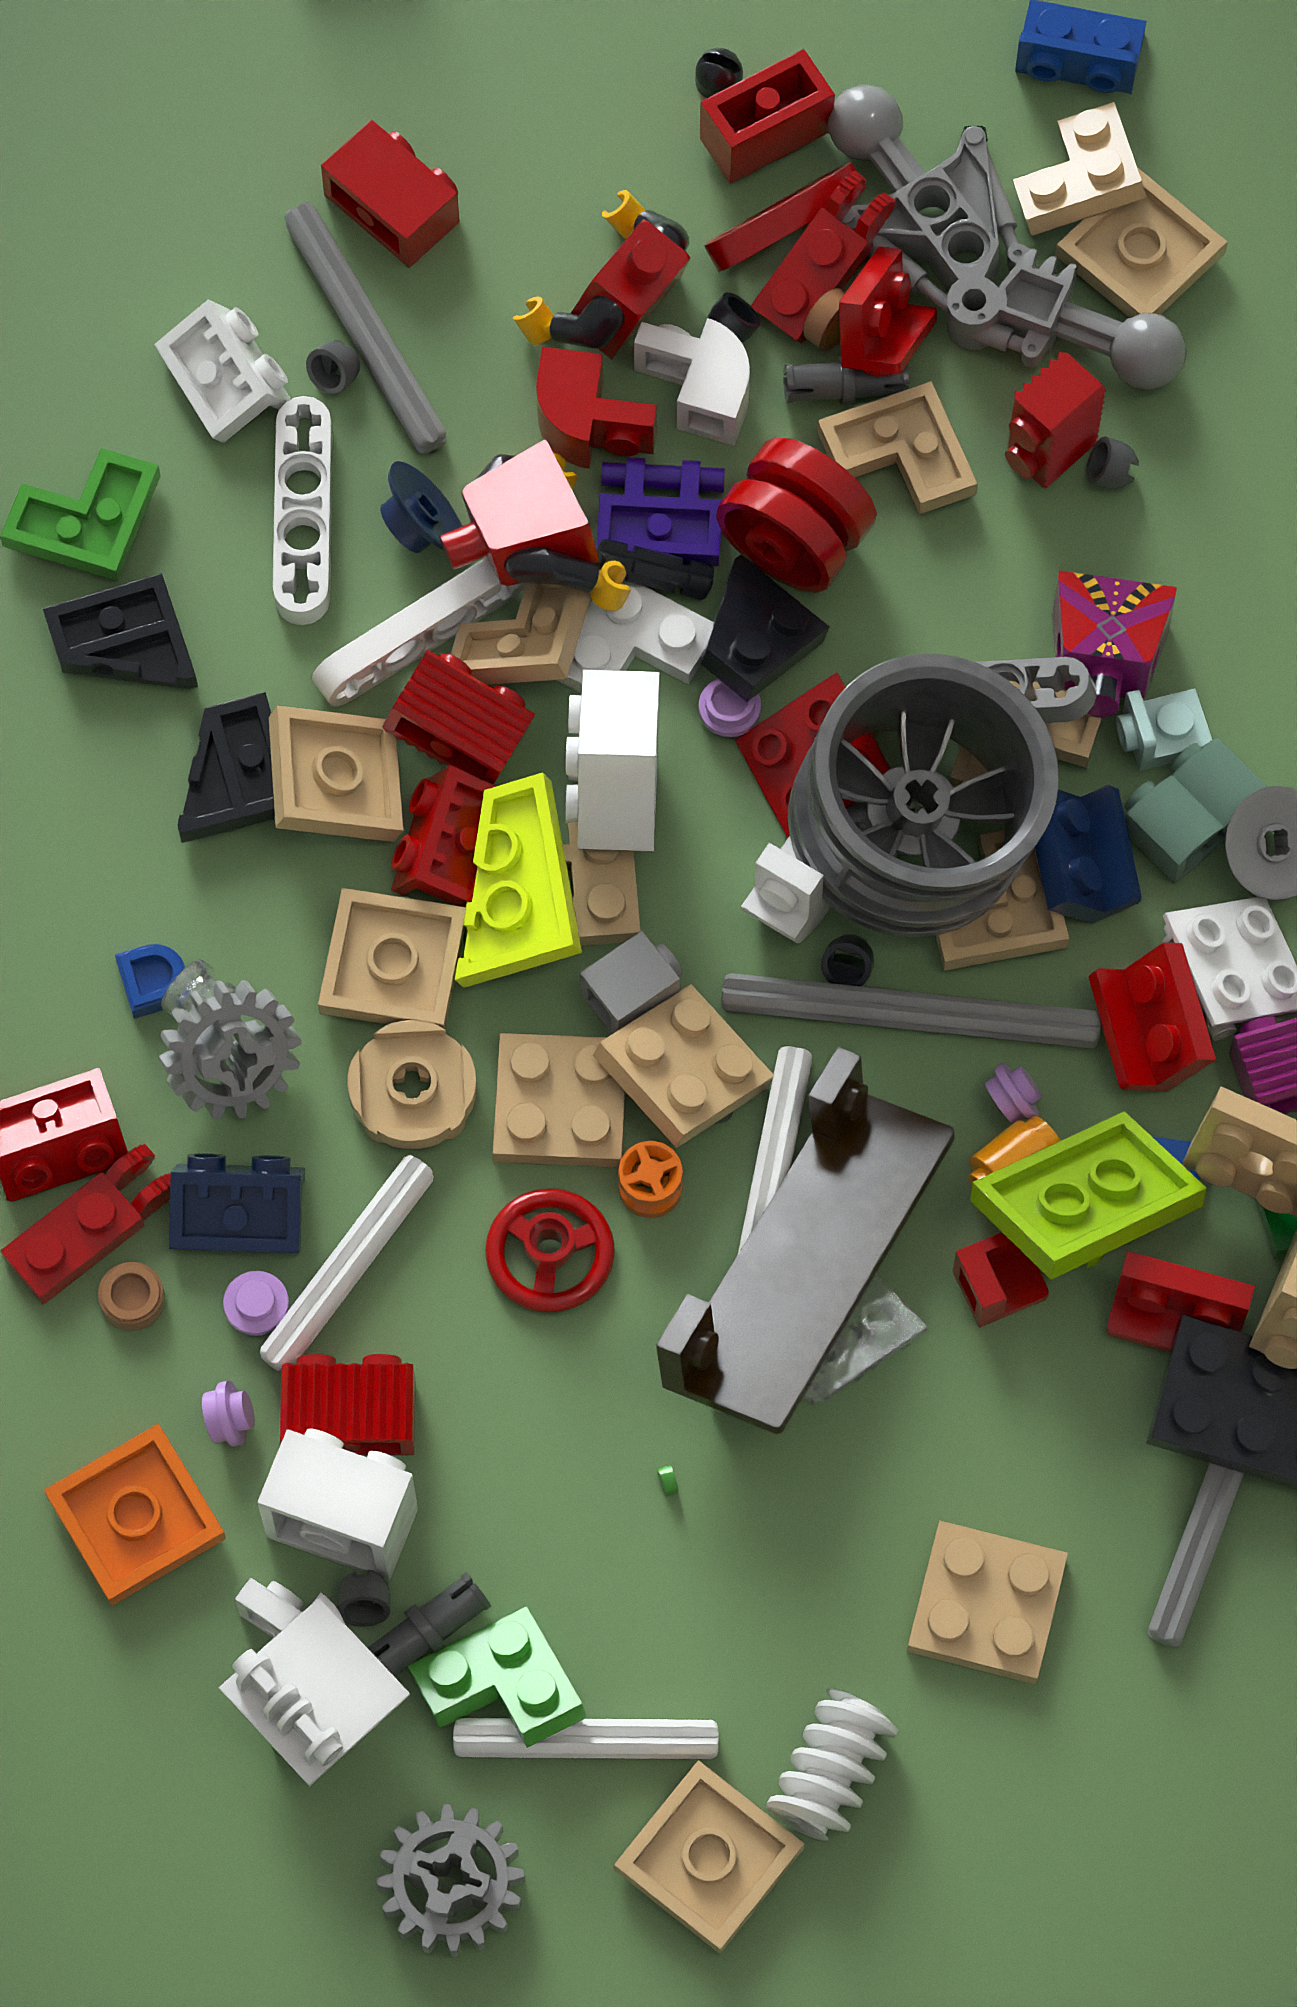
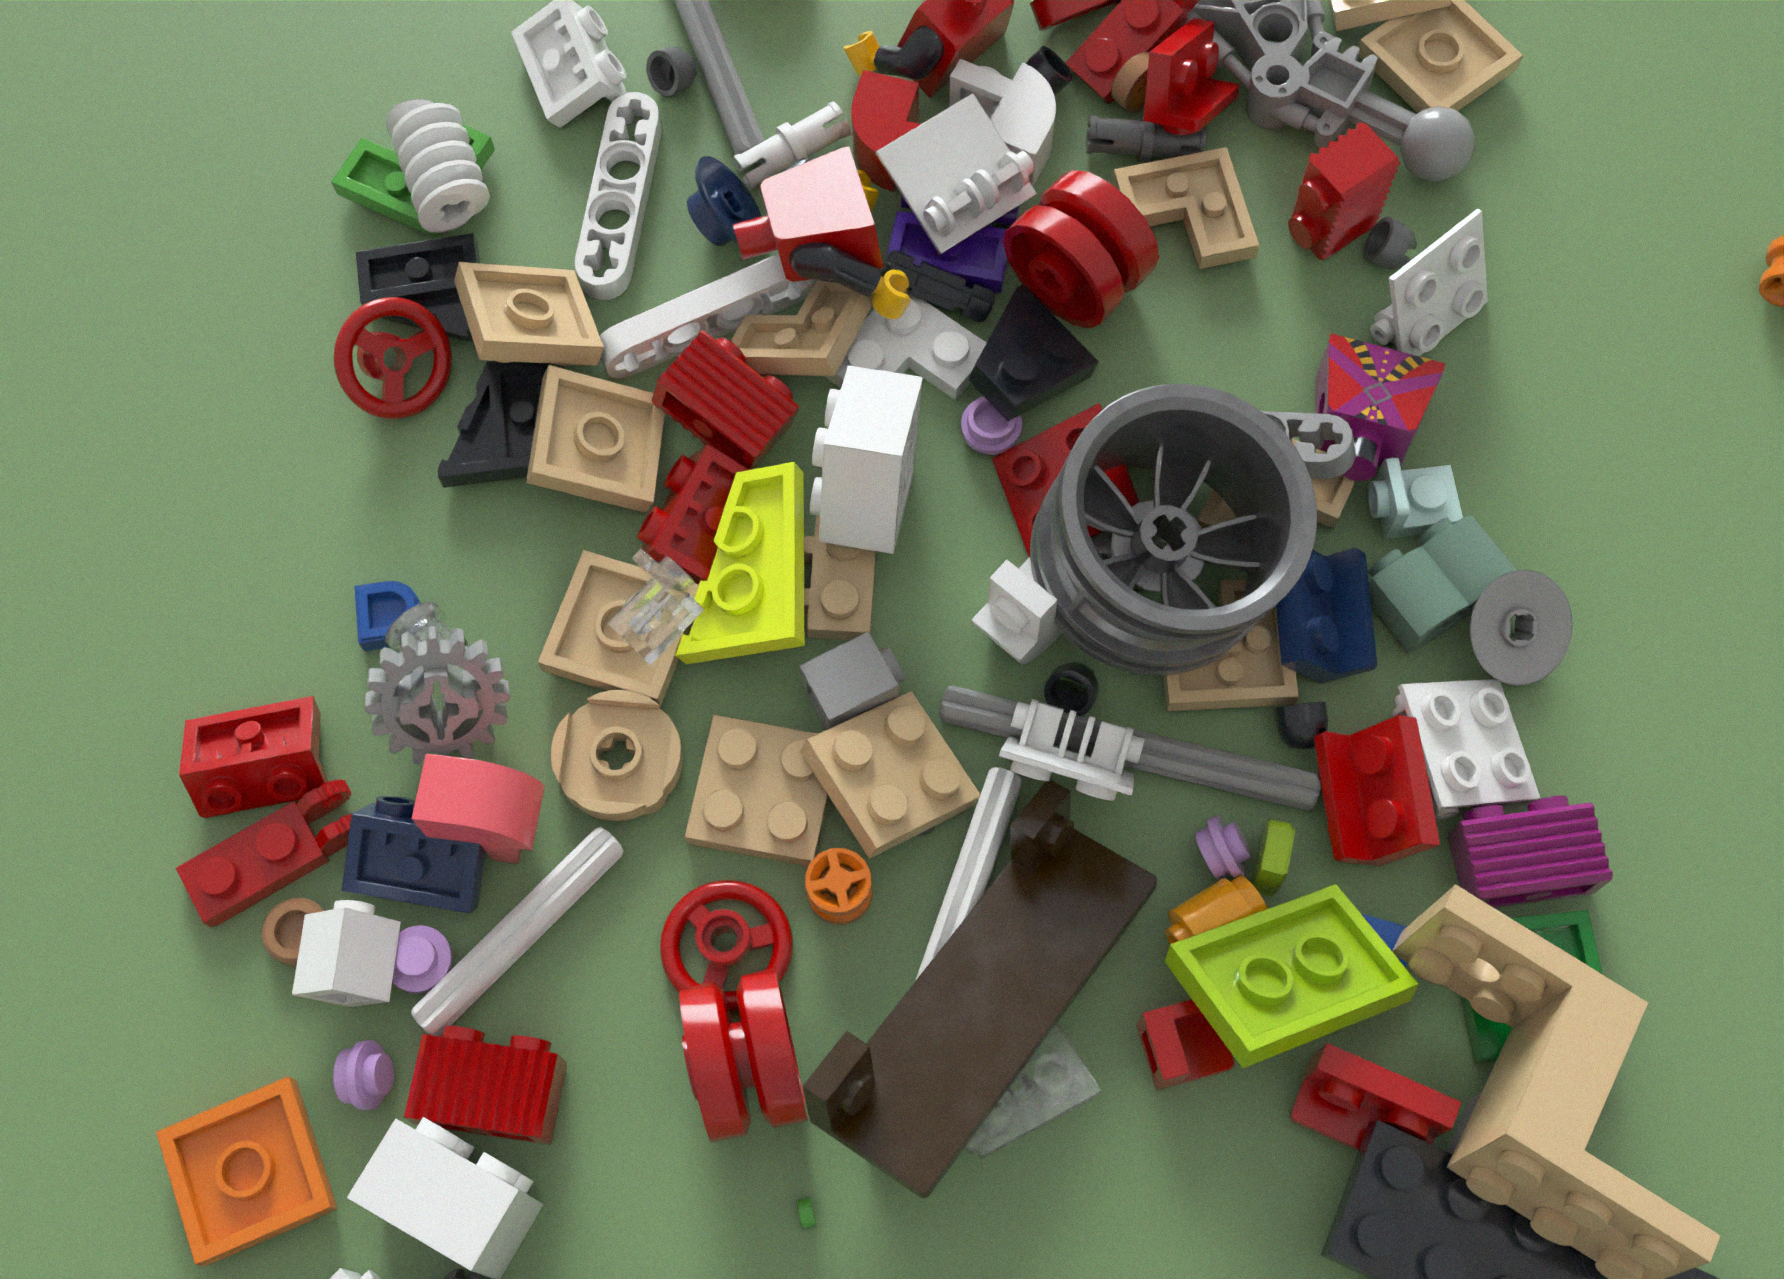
camera: 10 degrees right, 0 degrees up
(80, 714) = (371, 353): none -> red piece
(117, 507) = (437, 163): none -> white piece
(191, 1306) = (347, 955): none -> white brick
(241, 654) = (527, 314): none -> tan plate
(298, 1145) = (478, 805): none -> coral brick
(436, 936) = (658, 610): none -> clear bracket
(476, 434) = (792, 144): none -> white pin
(582, 1341) = (740, 1055): none -> red wheel
(658, 449) = (957, 173): none -> white hinge
(825, 1029) = (1096, 775): none -> white hinge
(1062, 1095) = (1273, 856): none -> lime tile
(1075, 963) = (1301, 723): none -> black hinge
(1161, 512) = (1436, 290): none -> white hinge

